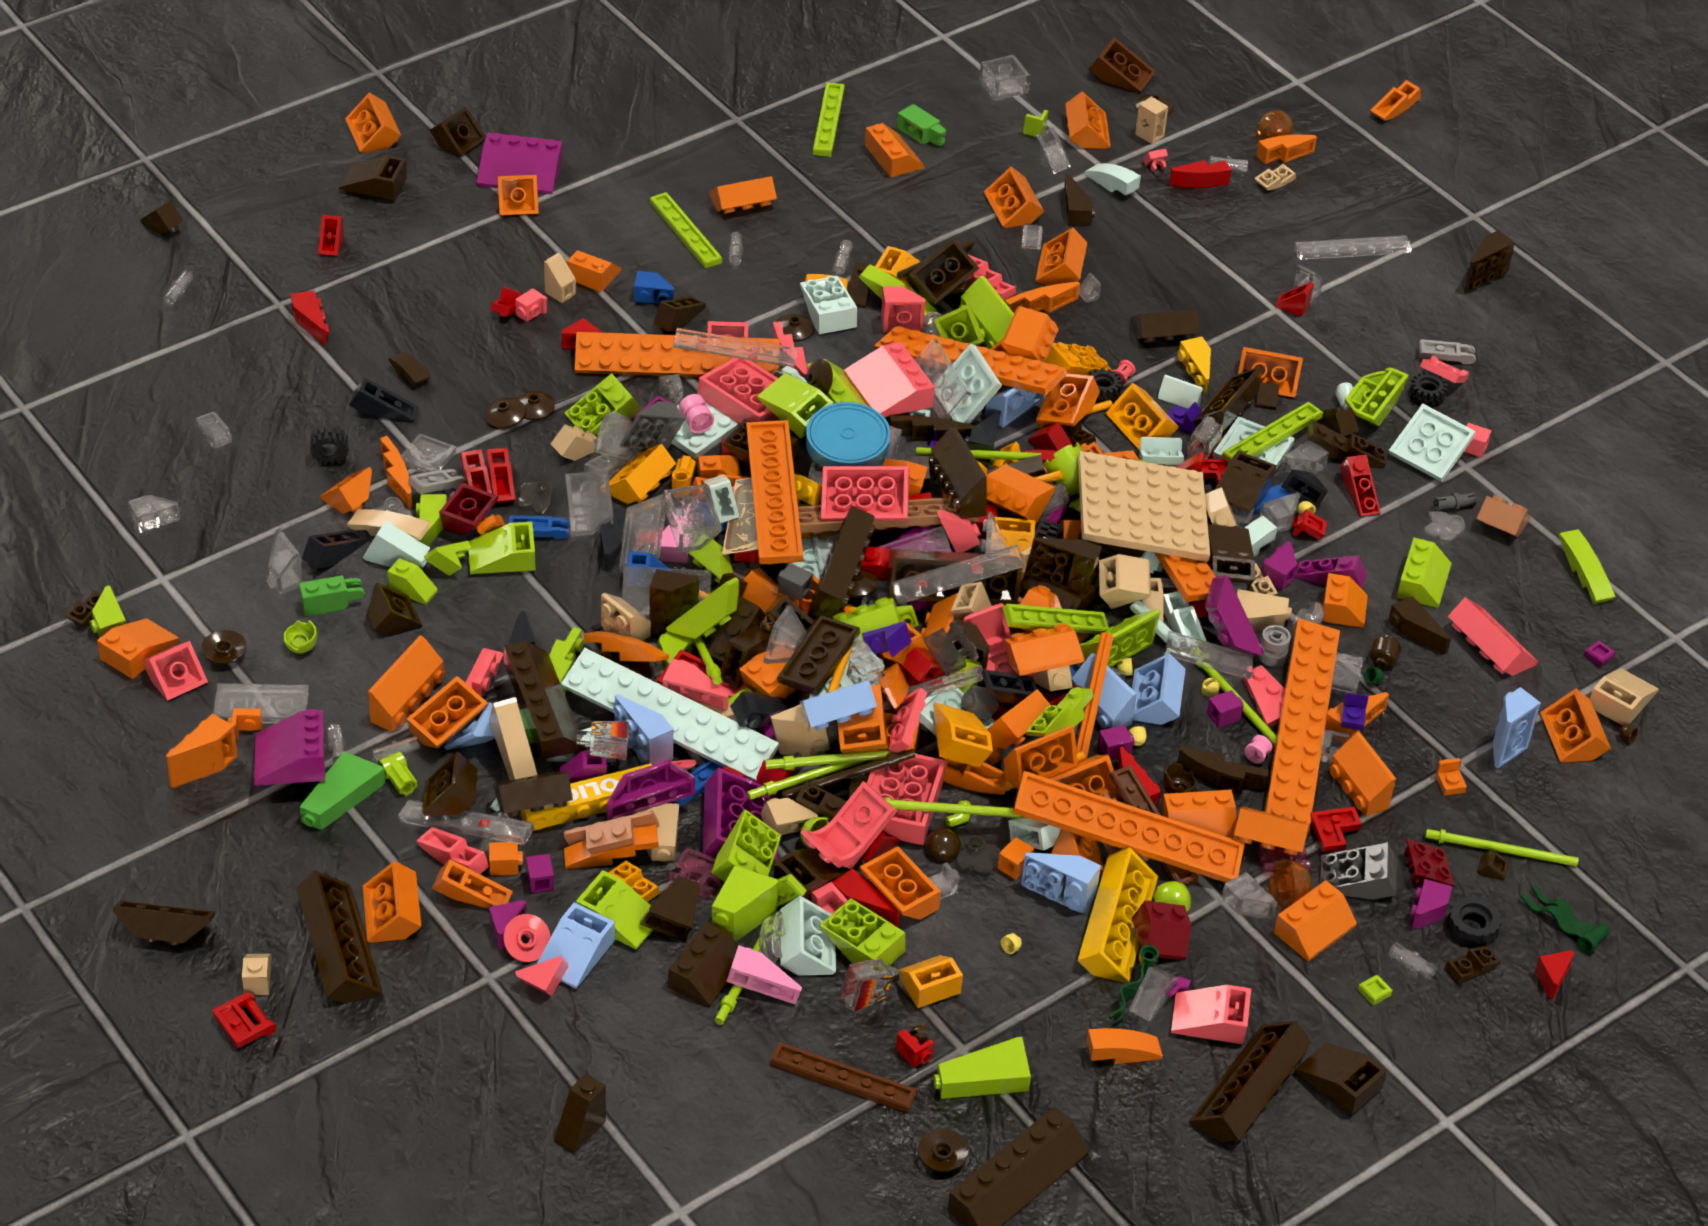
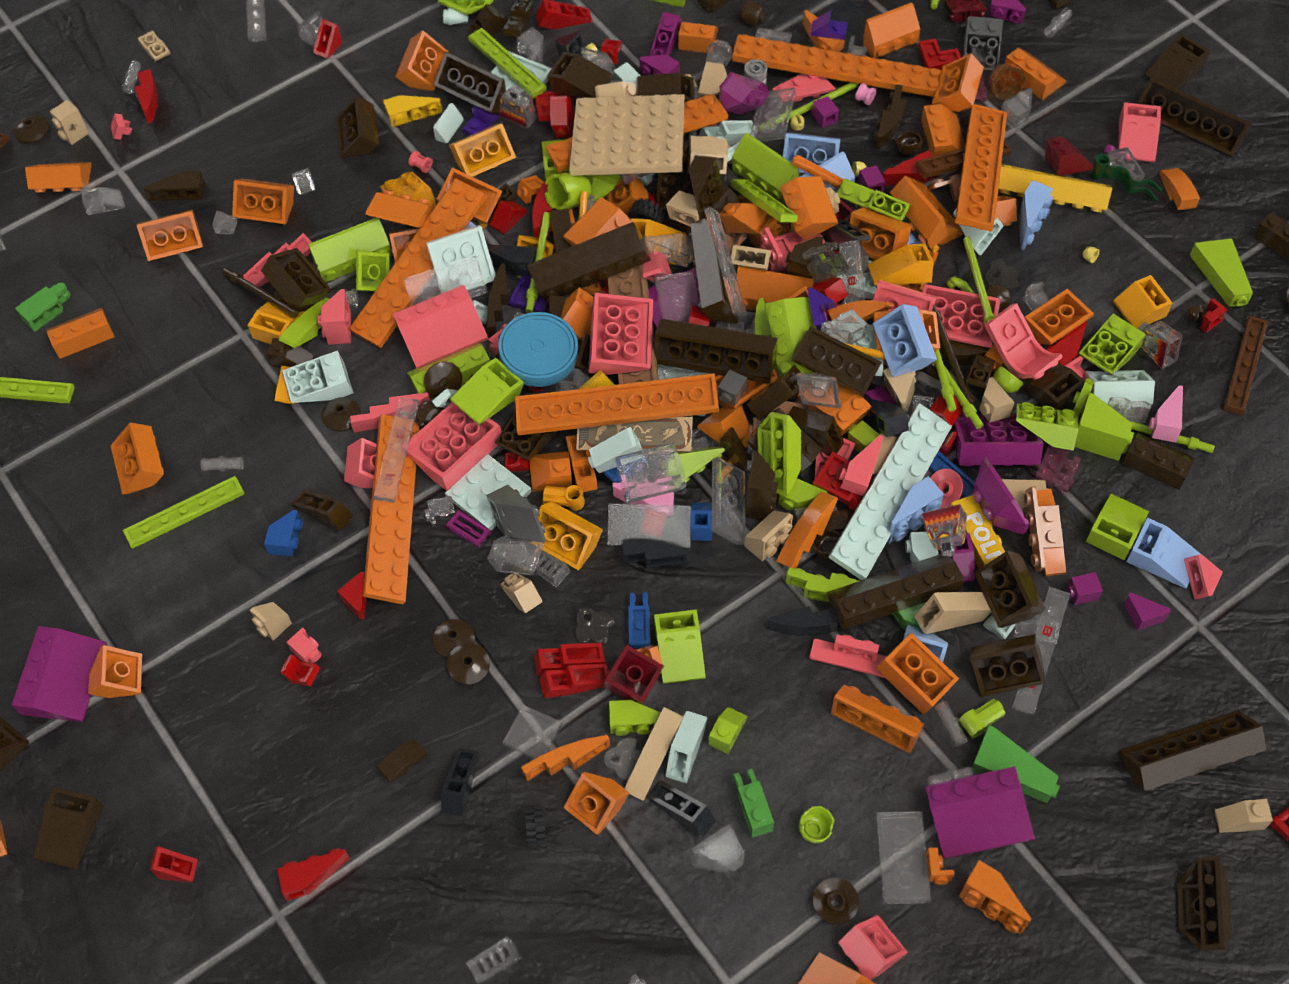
camera: 85 degrees left, 15 degrees up
(391, 612) = (772, 741): dark brown slope -> none
(391, 904) = (1144, 708): orange slope -> none
(436, 481) = (586, 715): light grey hinge -> none
(447, 557) = (689, 693): lime slope -> none
(449, 846) = (1071, 662): coral slope -> none
(470, 887) = (1112, 644): orange slope -> none
(504, 858) = (1074, 619): orange brick -> none
(536, 932) = (1161, 593): coral dish -> none
(588, 501) = (613, 571): clear slope -> none
(592, 270) = (248, 589): orange slope -> none
(604, 398) = (467, 571): lime slope -> none
(633, 877) = (1077, 516): light orange slope -> none
(674, 909) = (1108, 481): dark brown slope -> none
(696, 413) = (490, 480): bright pink wheel -> none
(711, 669) = (854, 446): lime bar -> none
(842, 257) = (243, 372): clear pin -> none
(1012, 857) = (1005, 247): orange brick -> none
(1034, 124) = (55, 214): lime panel -> none
(1046, 297) = (318, 212): orange slope -> none
(1111, 381) = (434, 169): black tyre -> none
(1114, 177) = (143, 158): light aqua slope -> none
(1161, 450) = (526, 139): light aqua bracket -> none
(1173, 893) = (1025, 154): lime hair -> none
(1275, 124) = (83, 41): clear orange cylinder -> none
(1285, 147) = (115, 35): orange slope -> none
(1374, 675) = (779, 21): dark green hinge -> none
(1375, 990) = (1087, 46): lime tile -> none

